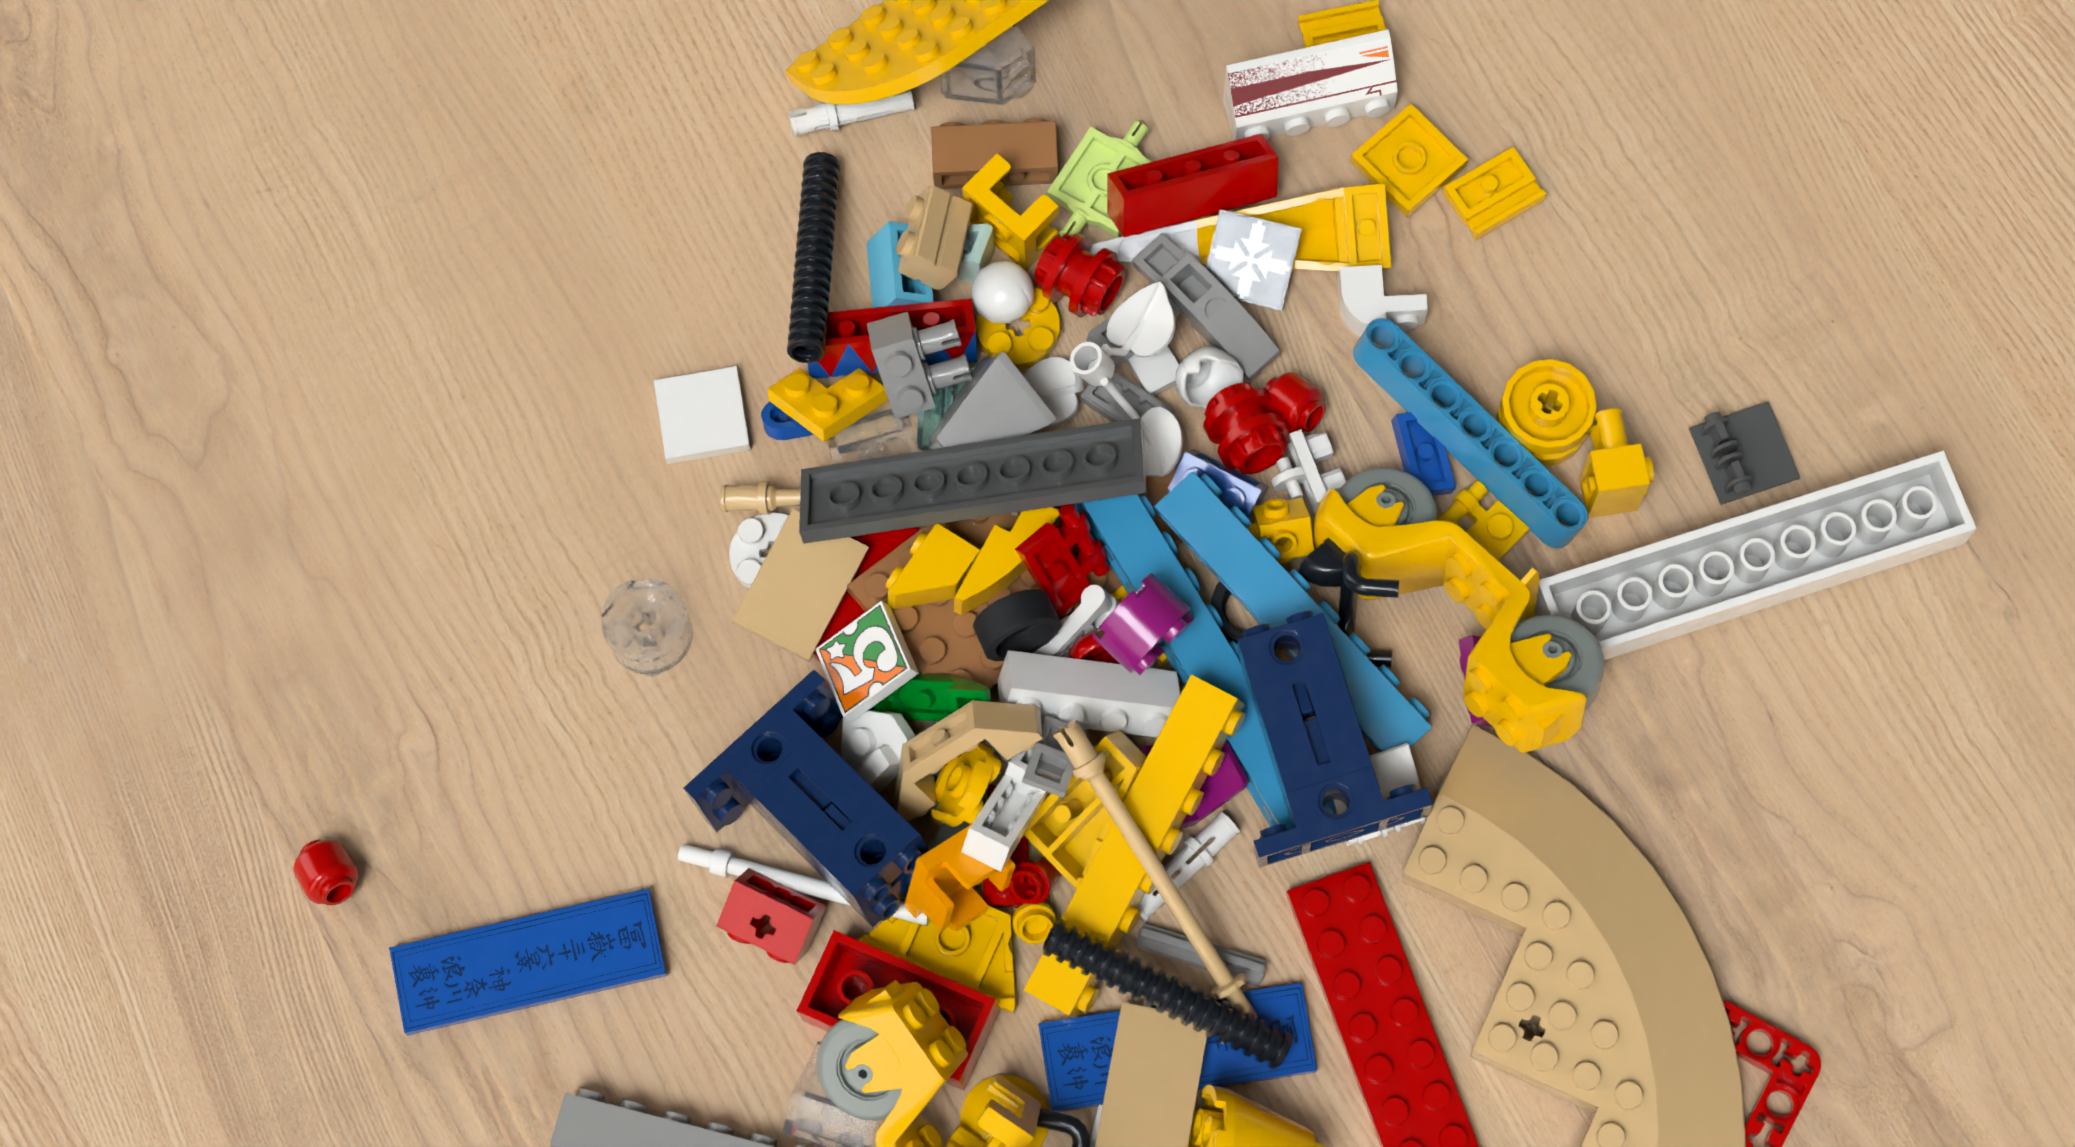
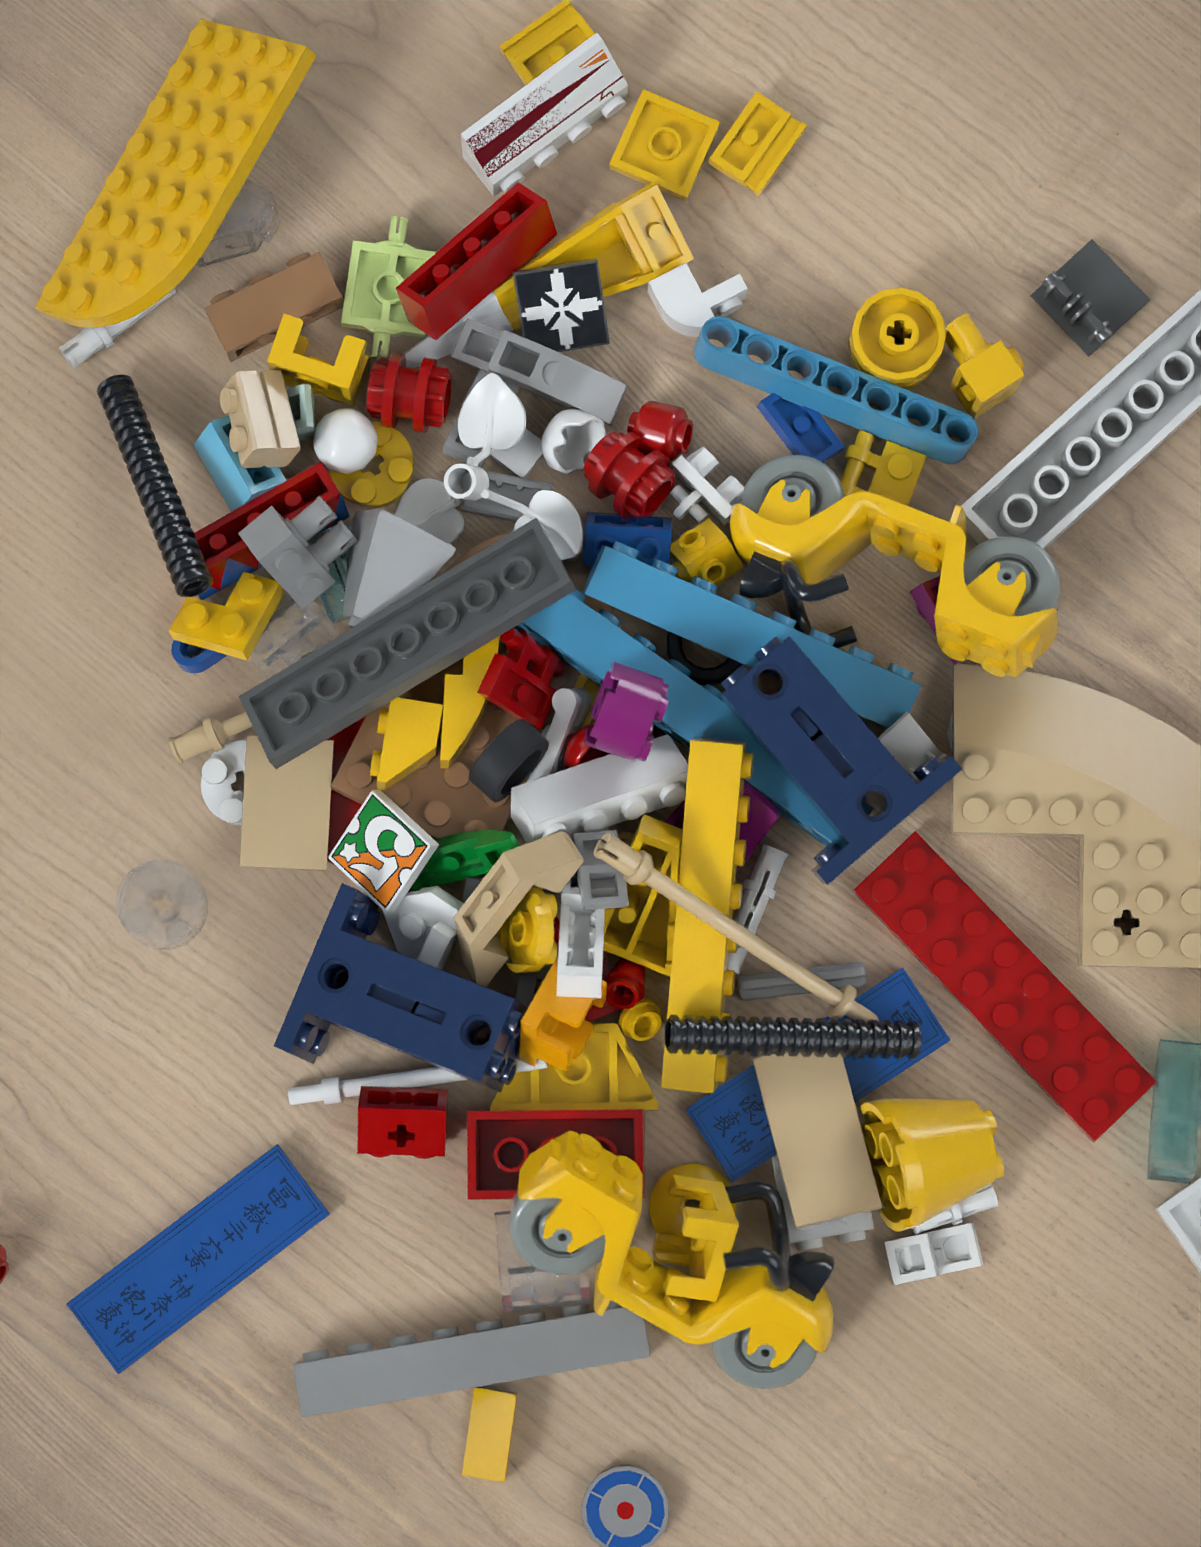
camera: 30 degrees left, 10 degrees up
(702, 415) = (115, 678): white tile -> none

